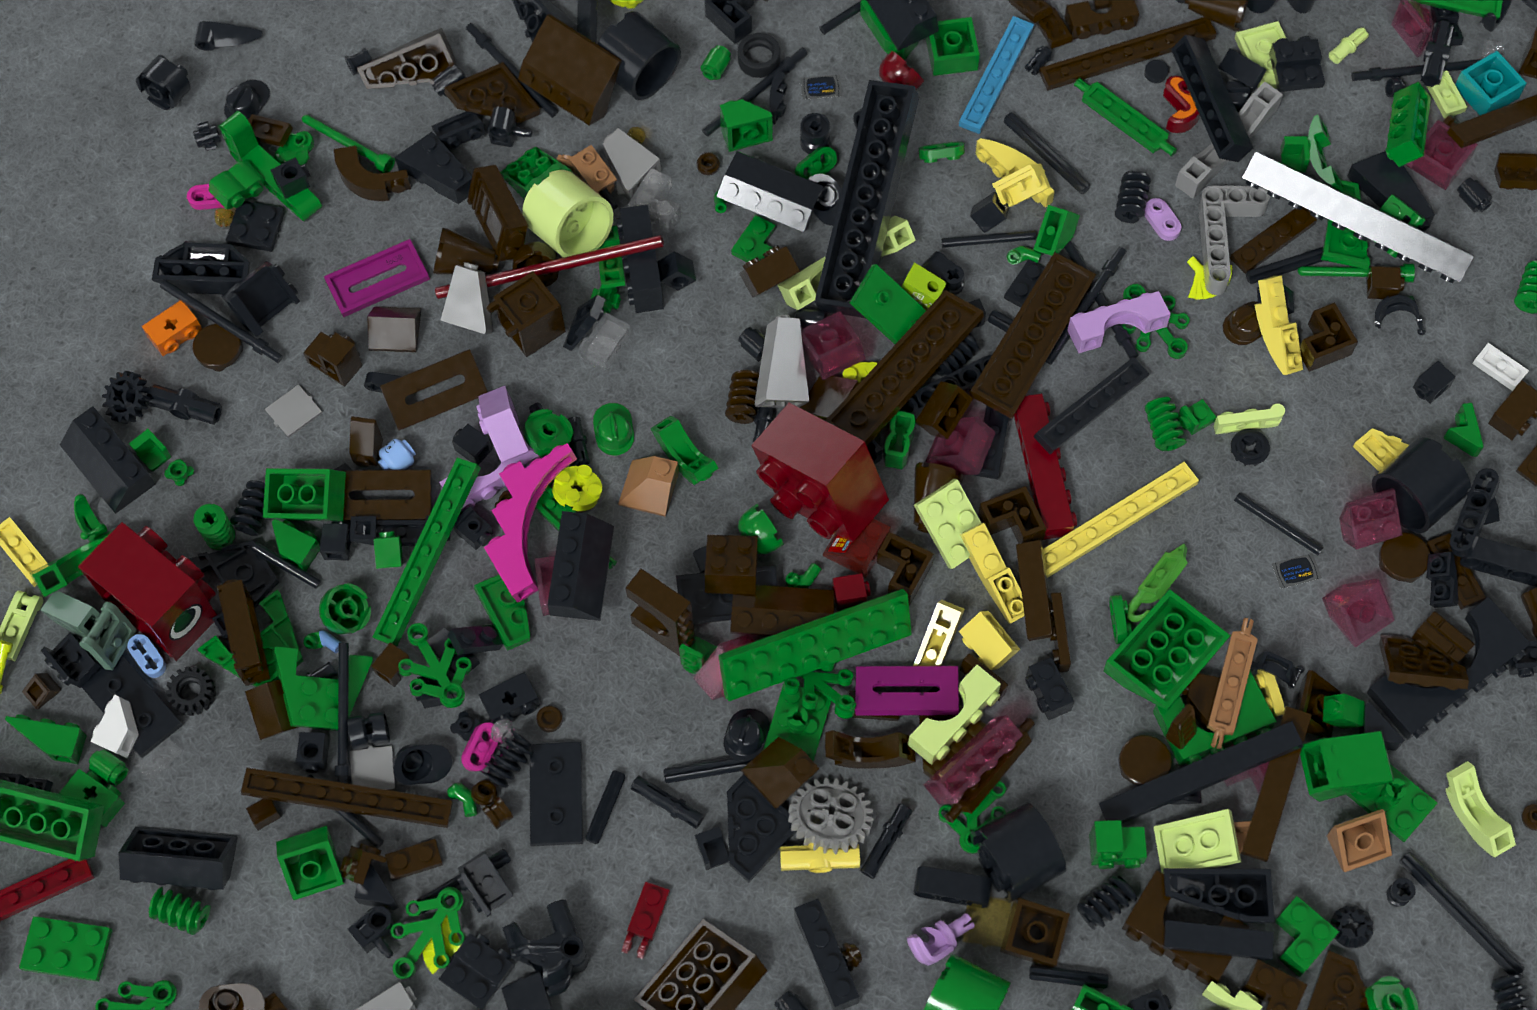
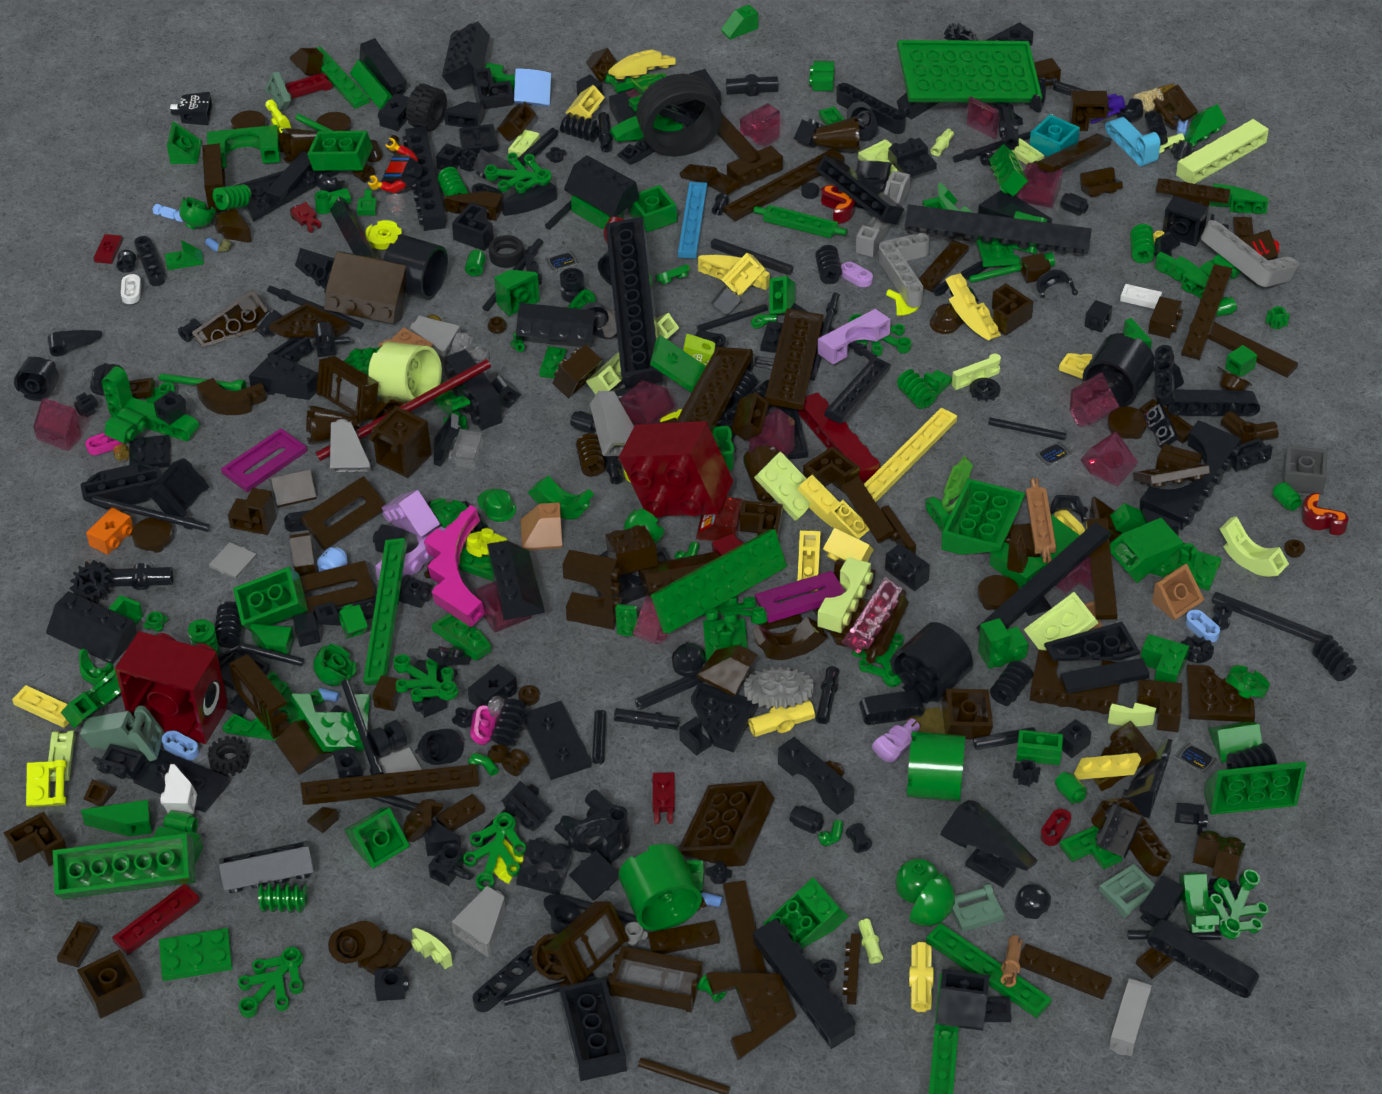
camera: 20 degrees left, 20 degrees down
(163, 159) = (57, 425): none -> clear pink slope
(1378, 892) = (1203, 625): none -> light blue beam

